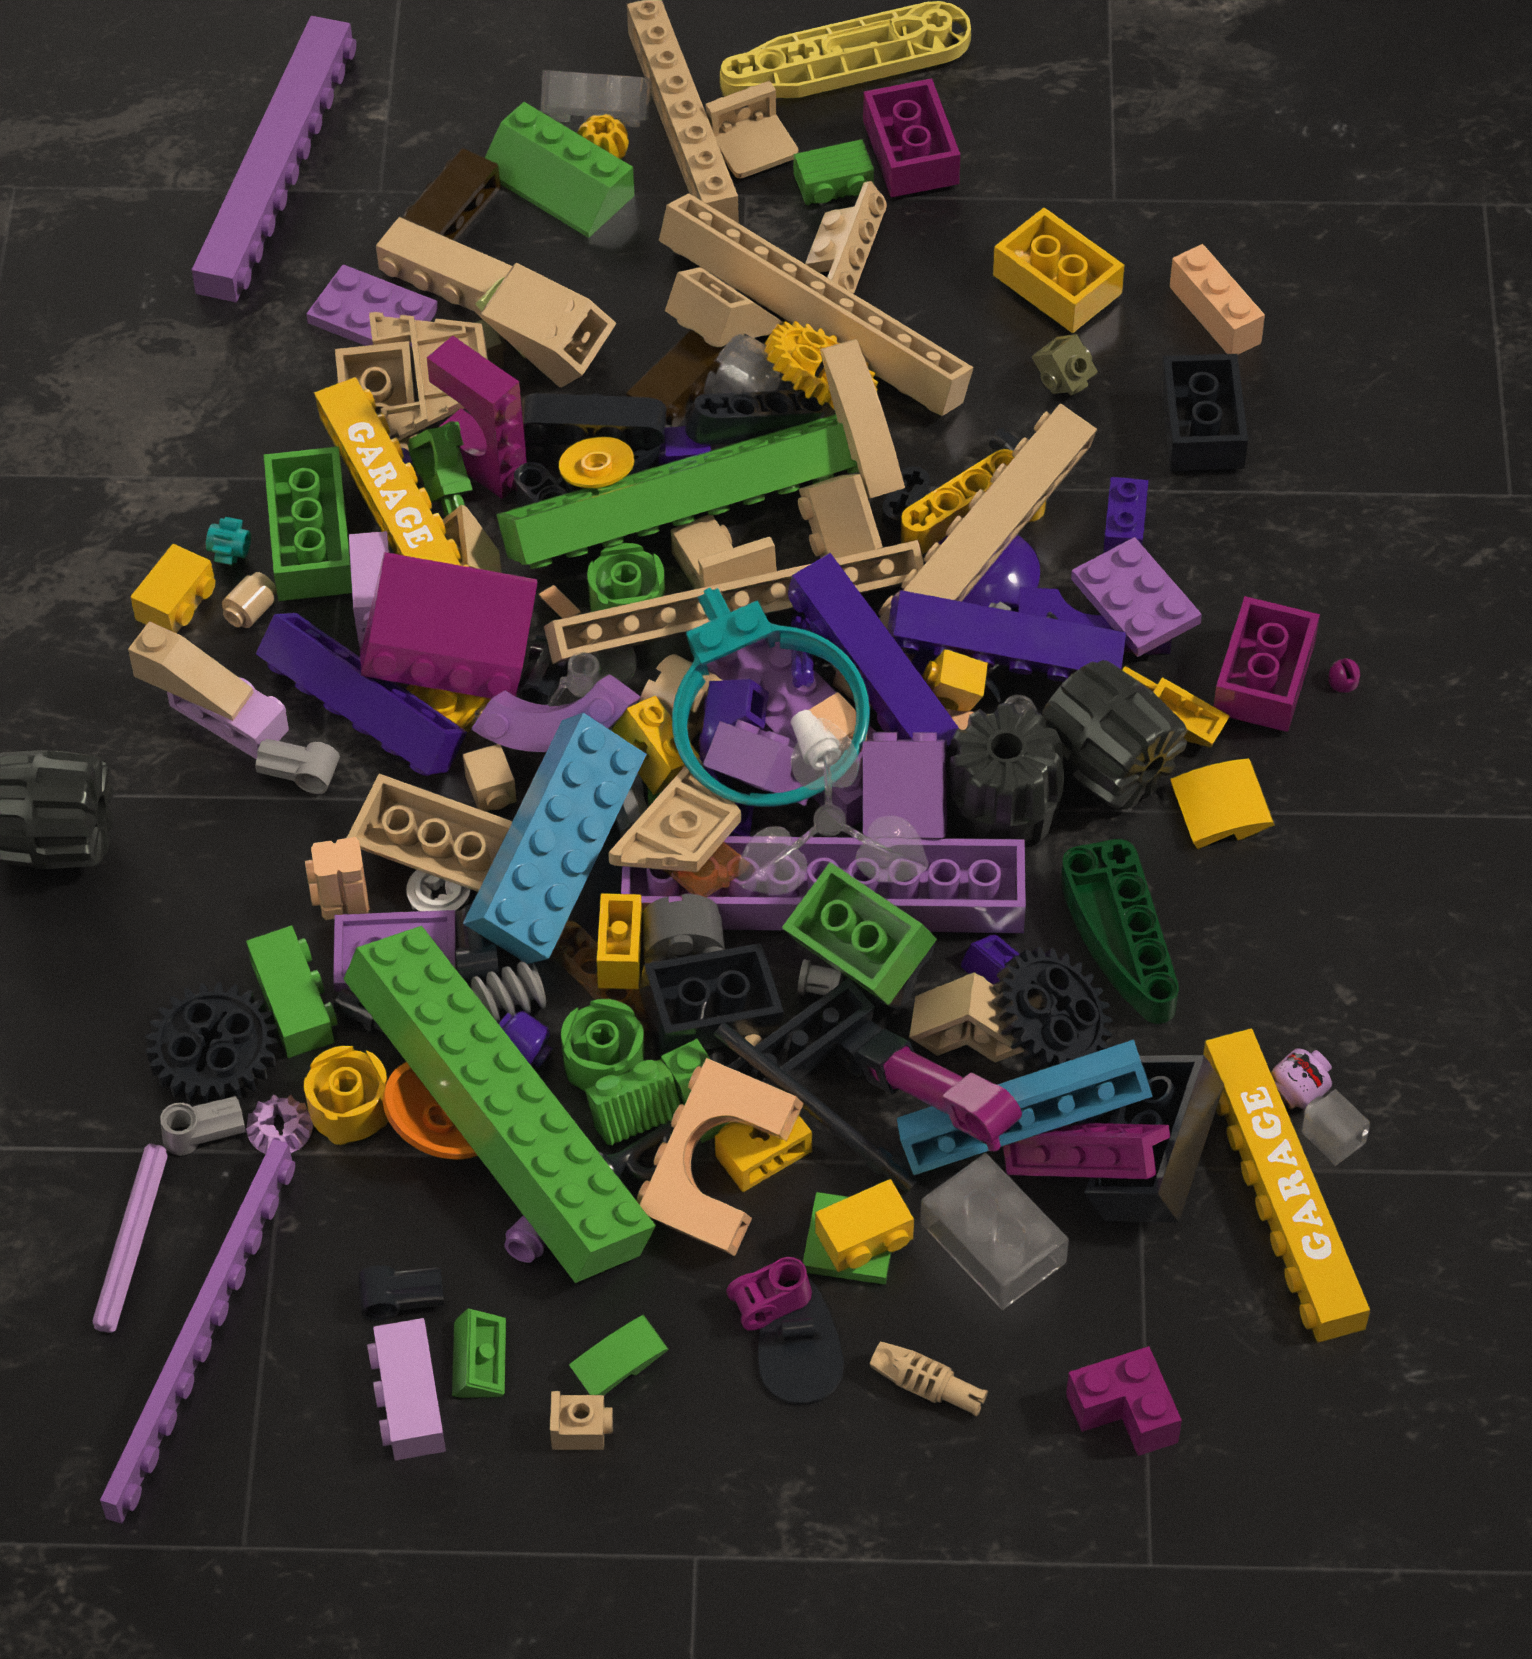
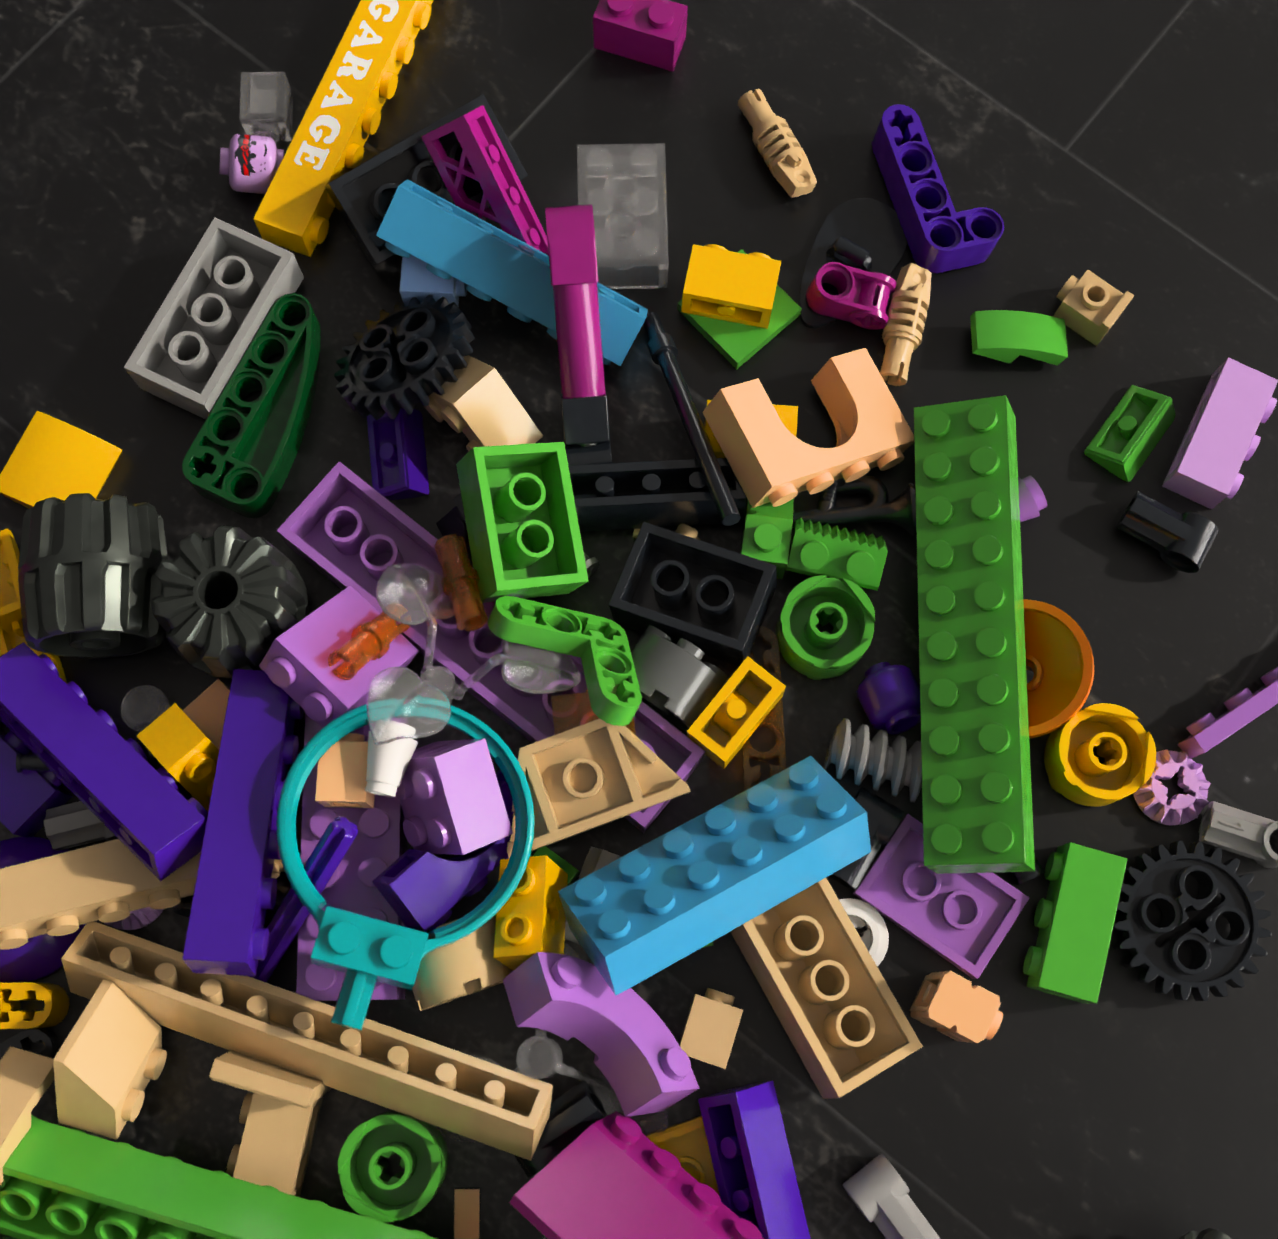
camera: 145 degrees left, 20 degrees up
(715, 1309) = (905, 322): none -> tan hinge
(741, 899) = (593, 638): none -> bright green beam
(777, 1419) = (902, 147): none -> dark purple beam
(866, 873) = (460, 583): none -> clear orange pin
(889, 787) = (366, 644): none -> clear orange pin
(1211, 951) = (211, 317): none -> light grey brick

